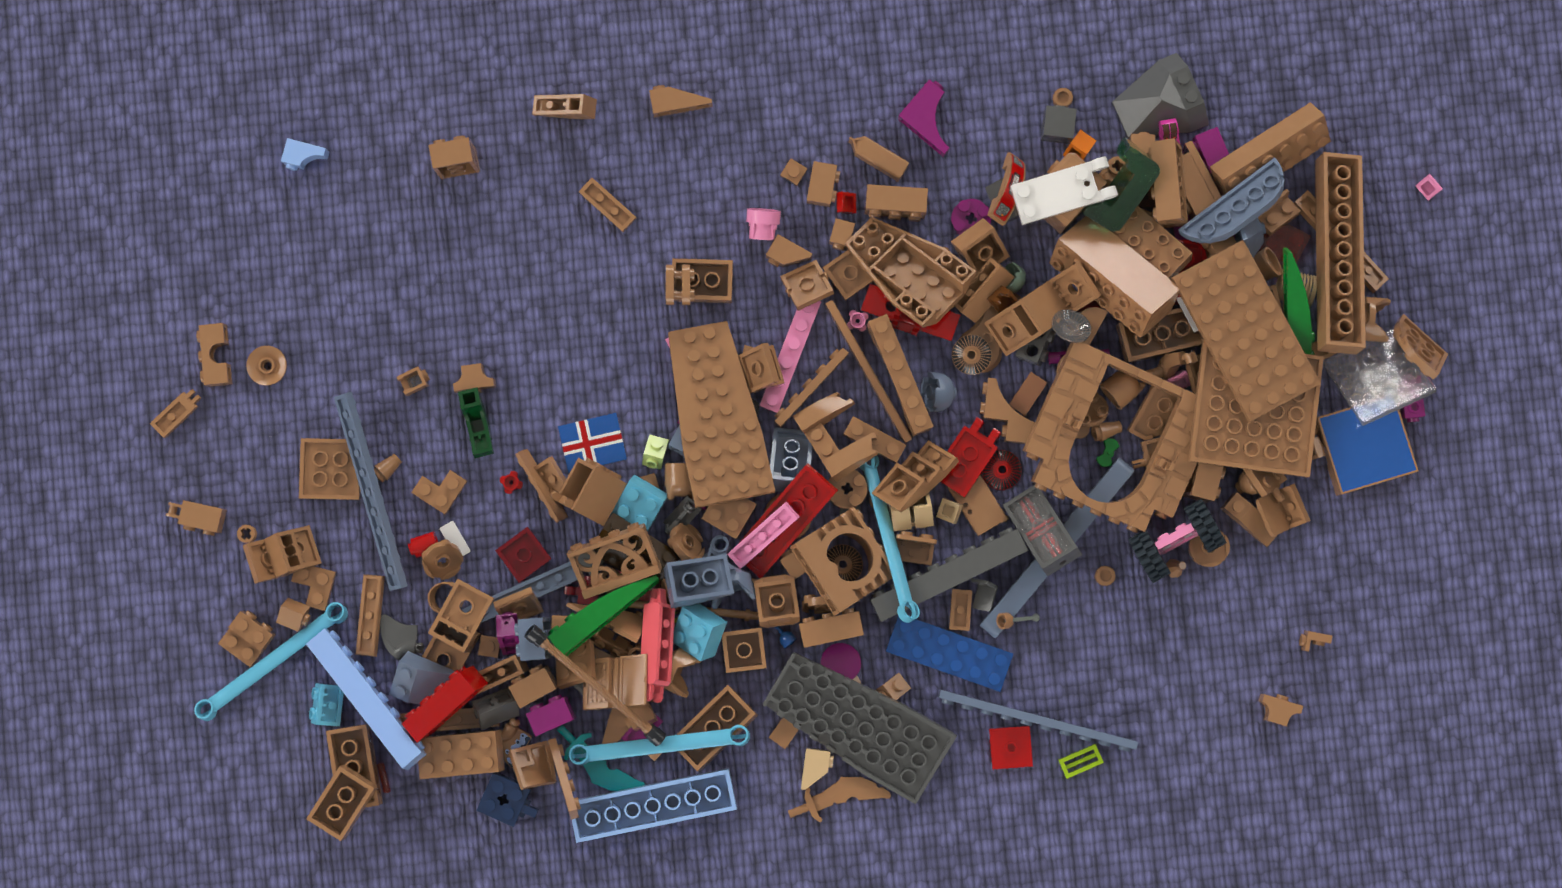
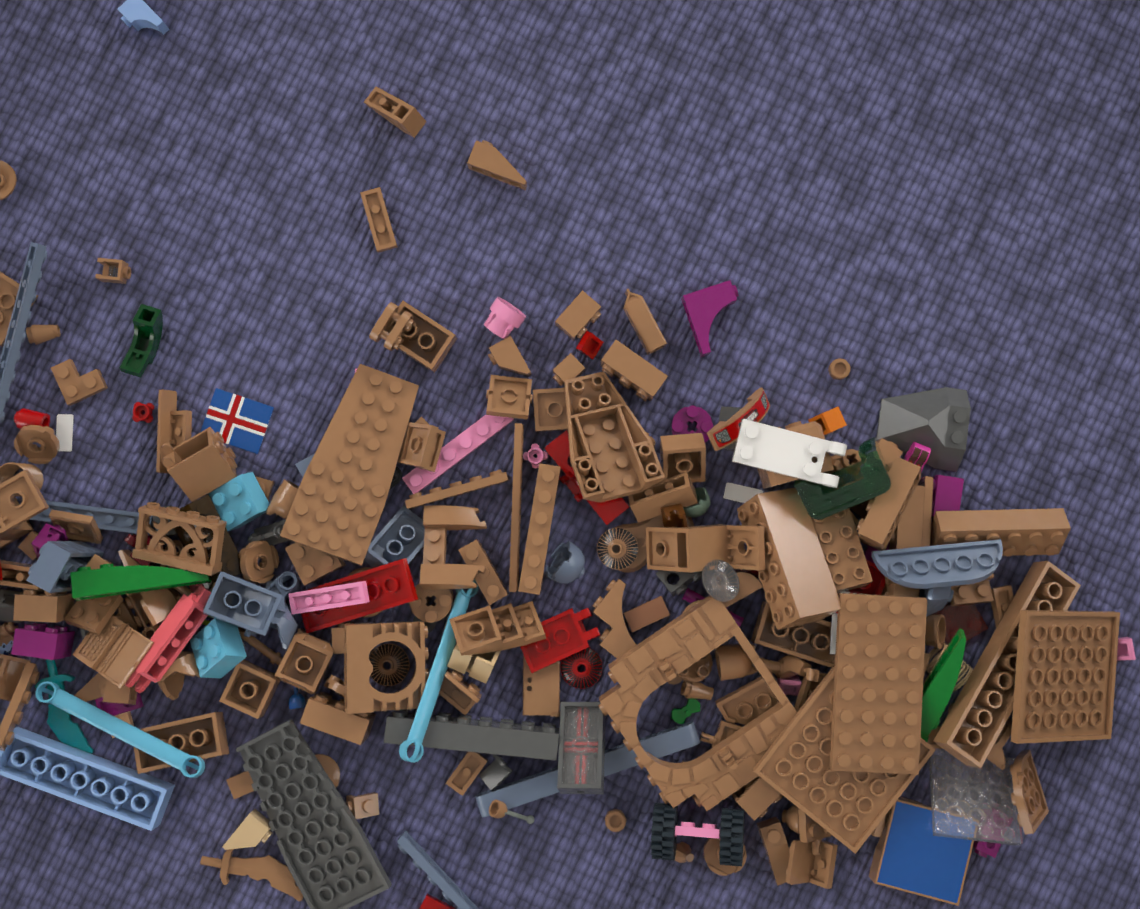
camera: 30 degrees right, 0 degrees up
(454, 157) = (266, 94): medium nougat brick -> none
(473, 377) = (167, 300): medium nougat brick -> none
(523, 554) = (113, 483): dark red plate -> none
(539, 639) = (52, 569): medium nougat hose -> none
(655, 452) = (284, 462): yellowish green bracket -> none
(793, 172) = (560, 290): medium nougat plate -> none
(842, 659) = (332, 752): magenta piece -> none
(949, 511) = (511, 676): tan plate -> none
(950, 653) = (435, 806): blue plate -> none
(1042, 249) = (739, 493): none -> white sticker
(1058, 124) = (821, 390): dark grey head -> none
(1392, 235) = (1065, 676): none -> medium nougat plate

